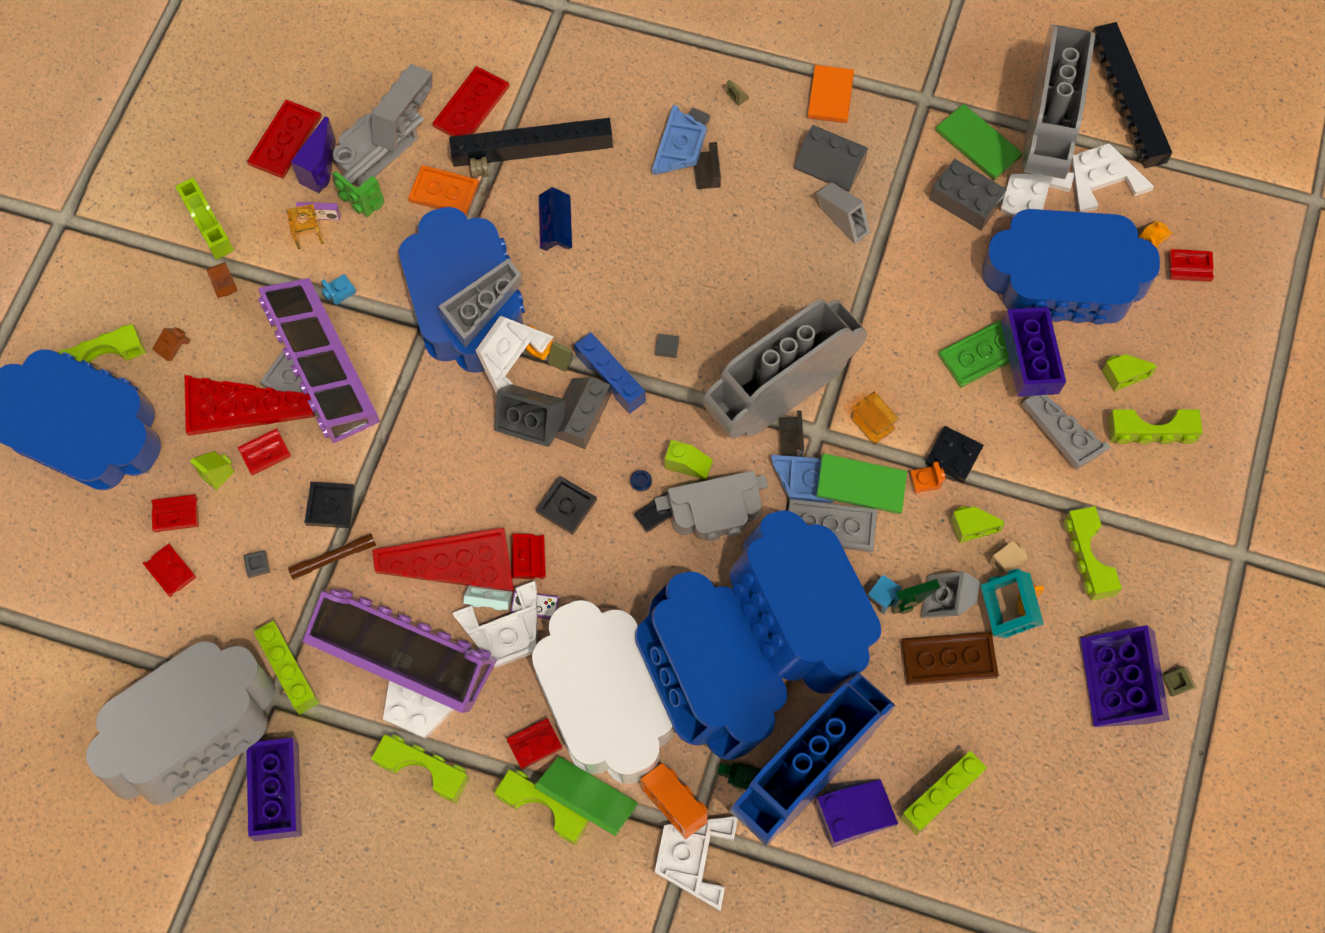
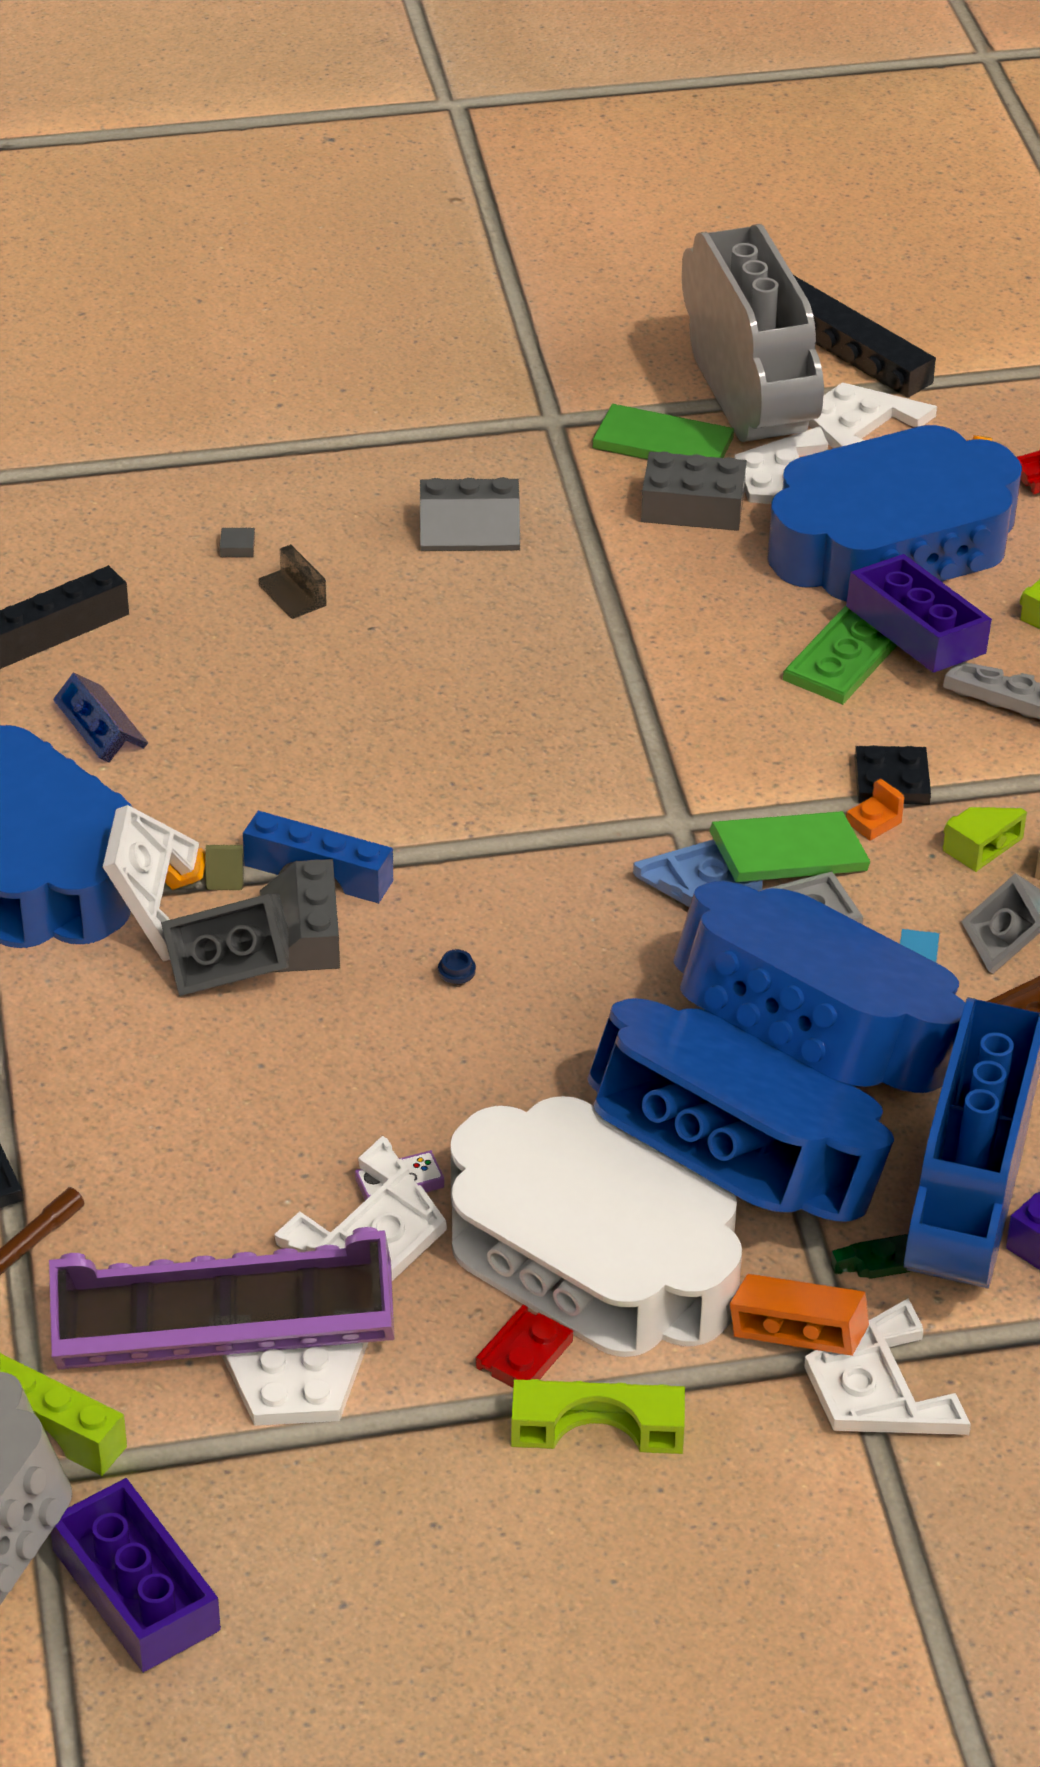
camera: 30 degrees left, 25 degrees down
(395, 755) = (411, 1443): lime arch -> none
(464, 559) = (242, 1164): red wing -> none
(480, 301) = (67, 810): light grey wedge -> none
(488, 597) = (337, 1191): light aqua plate -> none
(528, 556) = (345, 1119): red plate -> none
(566, 505) = (362, 1037): black plate -> none
(586, 795) = (659, 1368): bright green tile -> none
(649, 516) = (509, 996): black tile -> none
(667, 346) = (380, 802): dark grey tile -> none
(680, 143) = (232, 570): medium blue wing -> none
(687, 460) = (509, 915): lime slope -> none
(714, 505) = (589, 949): light grey brick -> none
(736, 93) = (275, 491): olive slope -> none
(784, 368) = (591, 727): light grey brick -> none
(791, 435) = (647, 830): clear smoke panel -> none
(831, 94) = (414, 452): orange tile -> none
(844, 211) = (534, 562): light grey slope -> none
(873, 417) = (748, 768): clear yellow piece -> none
(907, 599) = (963, 932): dark green wing -> none

